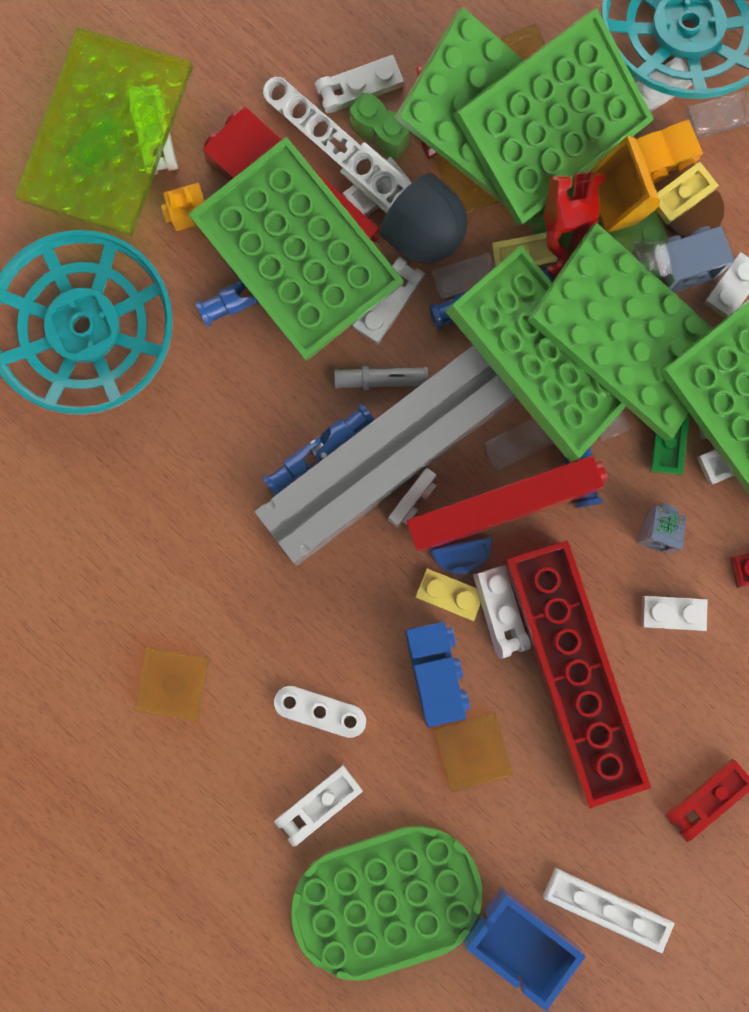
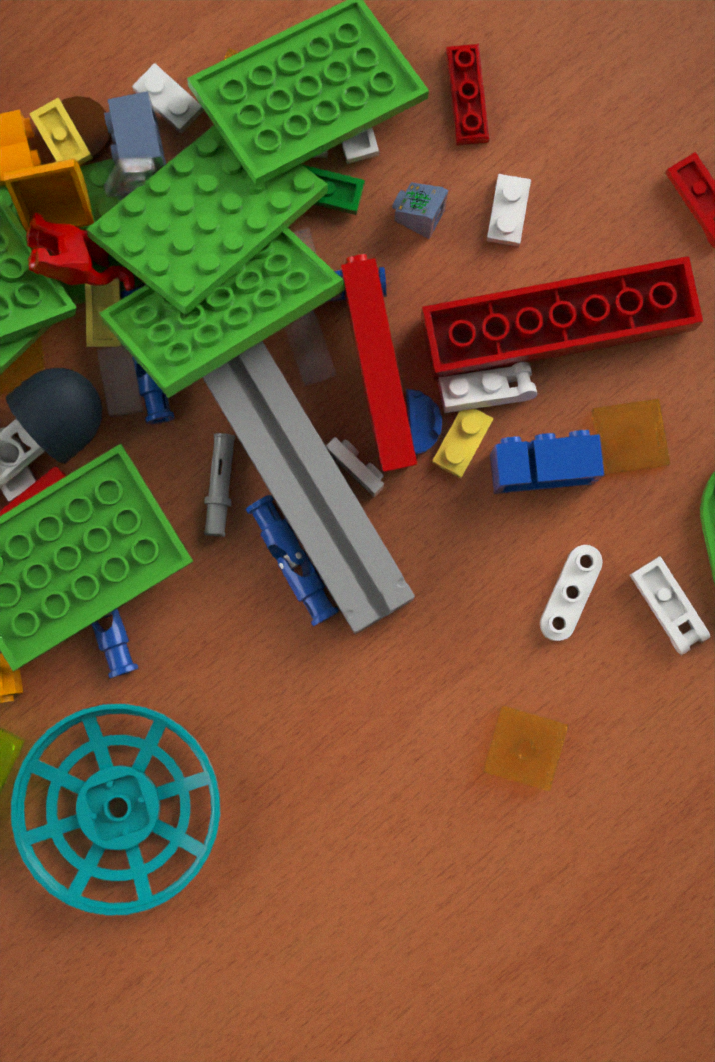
camera: 80 degrees left, 0 degrees up
(380, 319) = (159, 482): white plate -> none

